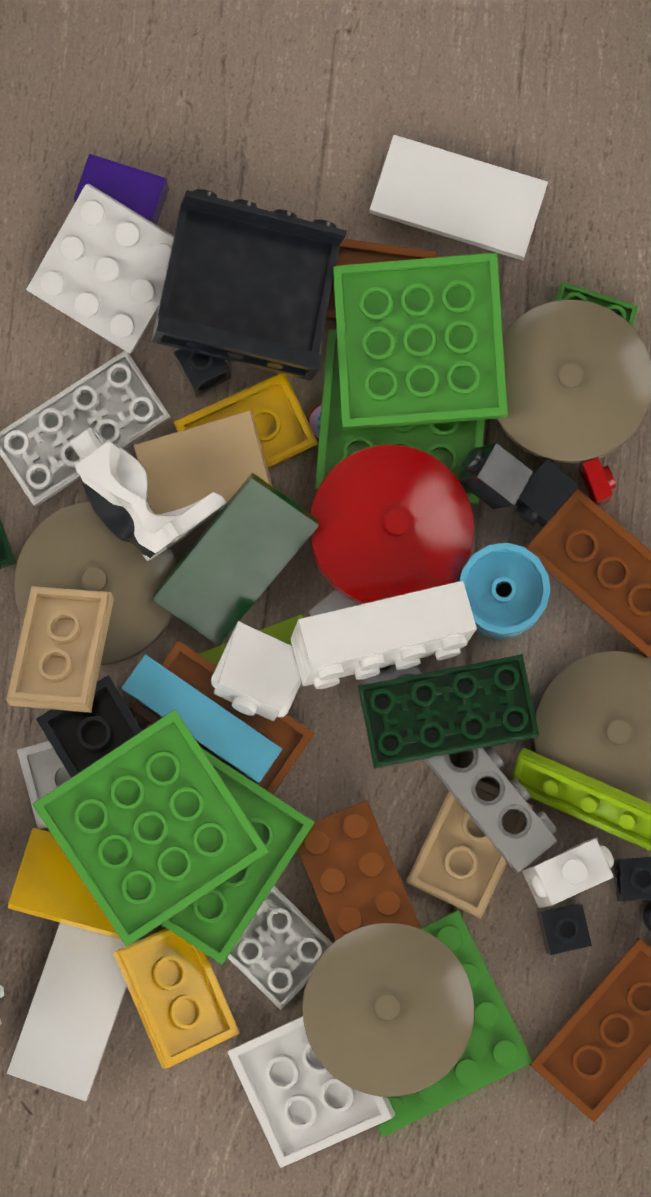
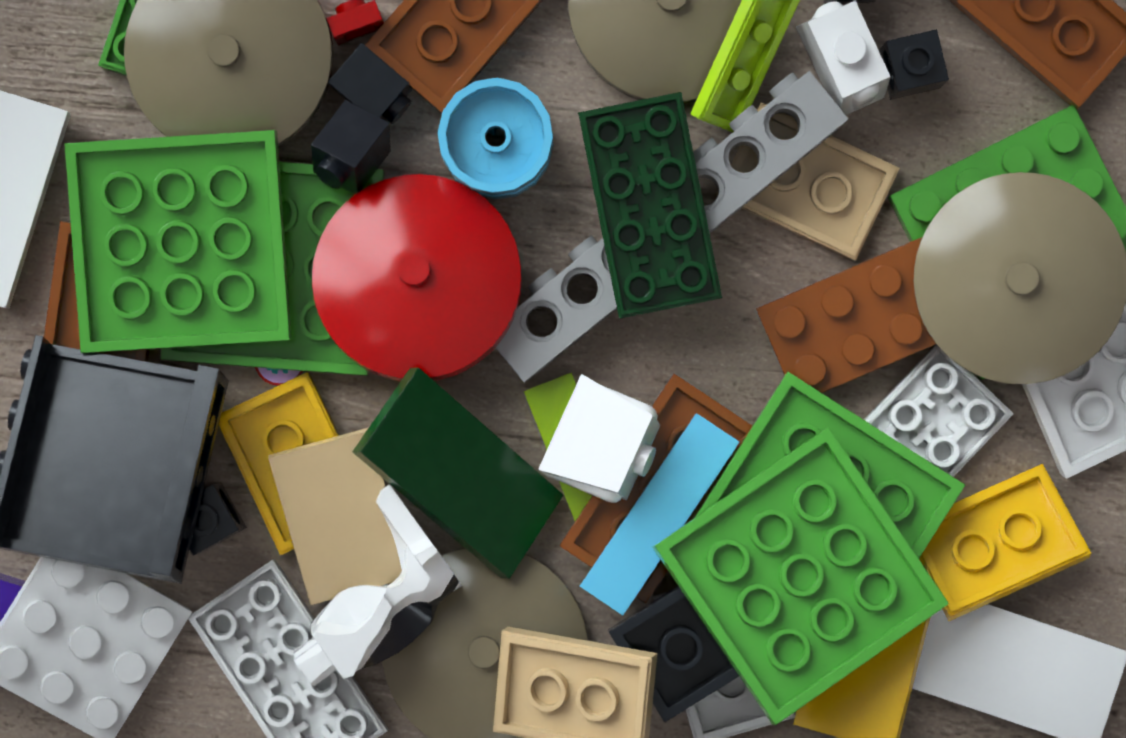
camera: 90 degrees left, 5 degrees up
(383, 635) = (556, 284): white brick -> none

